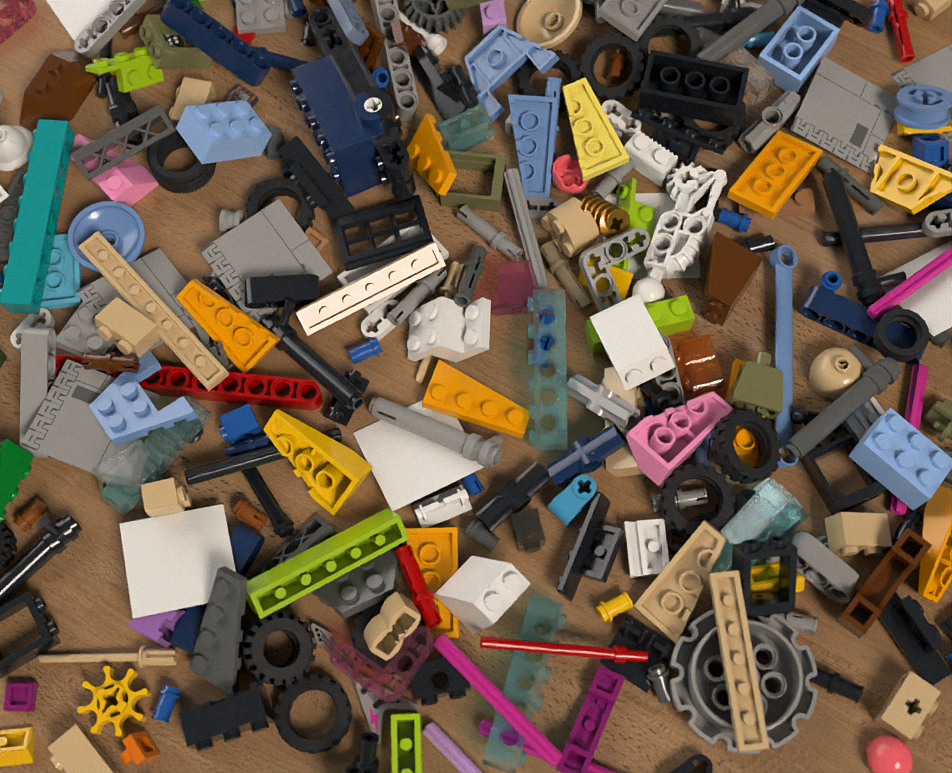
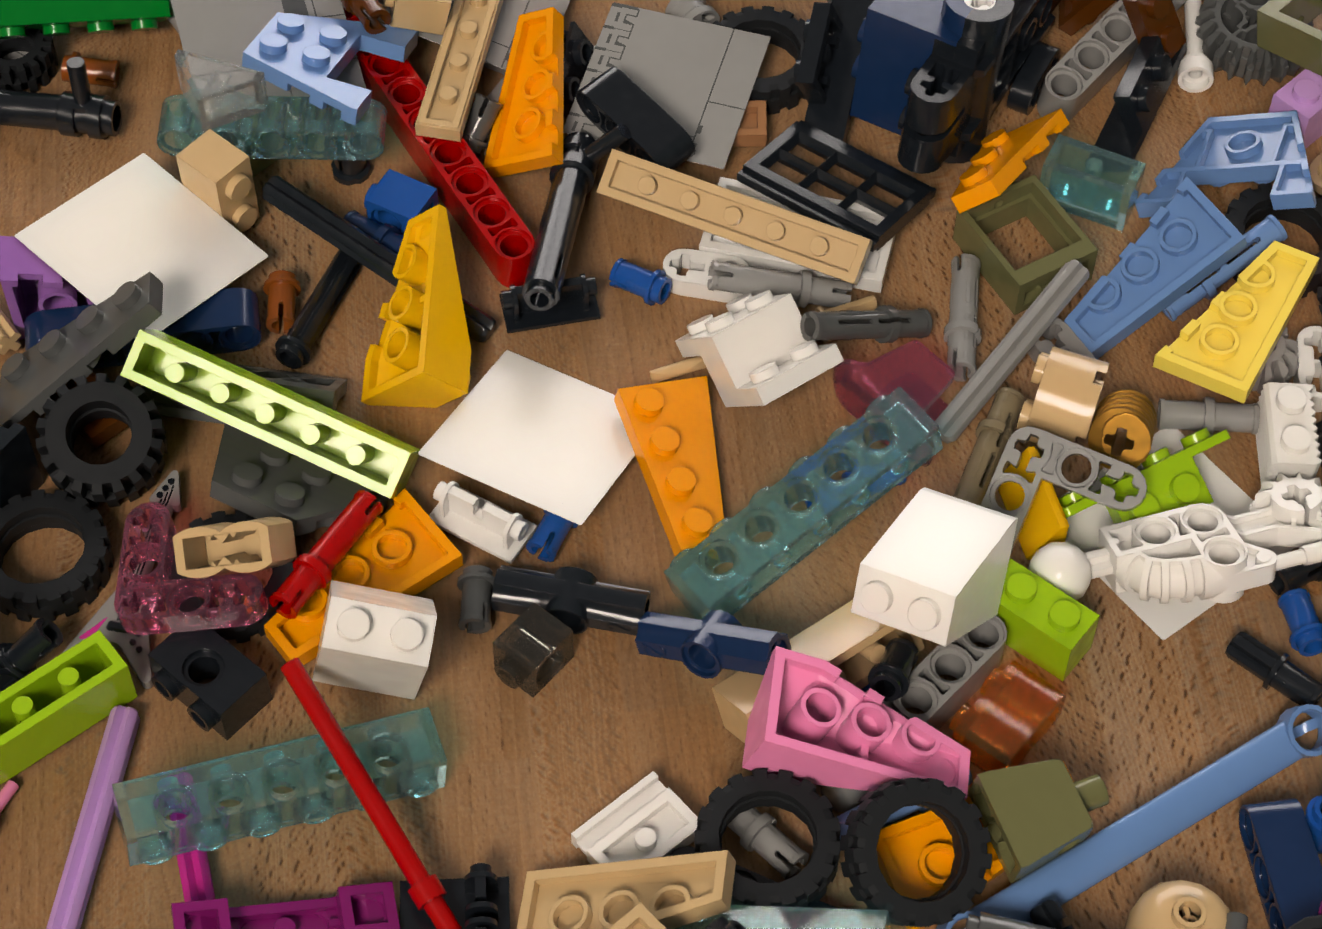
camera: 50 degrees right, 15 degrees down
(383, 75) = (1072, 24): blue pin -> none
(463, 86) = (1163, 142): black axle -> none
(469, 445) = (595, 480): light grey cylinder -> none
(498, 700) = (216, 752): dark pink axle -> none
(567, 175) = (1138, 347): coral hair -> none
(570, 502) = (629, 682): dark azure piece -> none
(593, 550) = (571, 753): black bracket -> none
(603, 402) = (814, 603): light grey piece -> none
(613, 607) = (503, 846): yellow pin -> none
(727, 276) = (1179, 659): reddish brown slope -> none

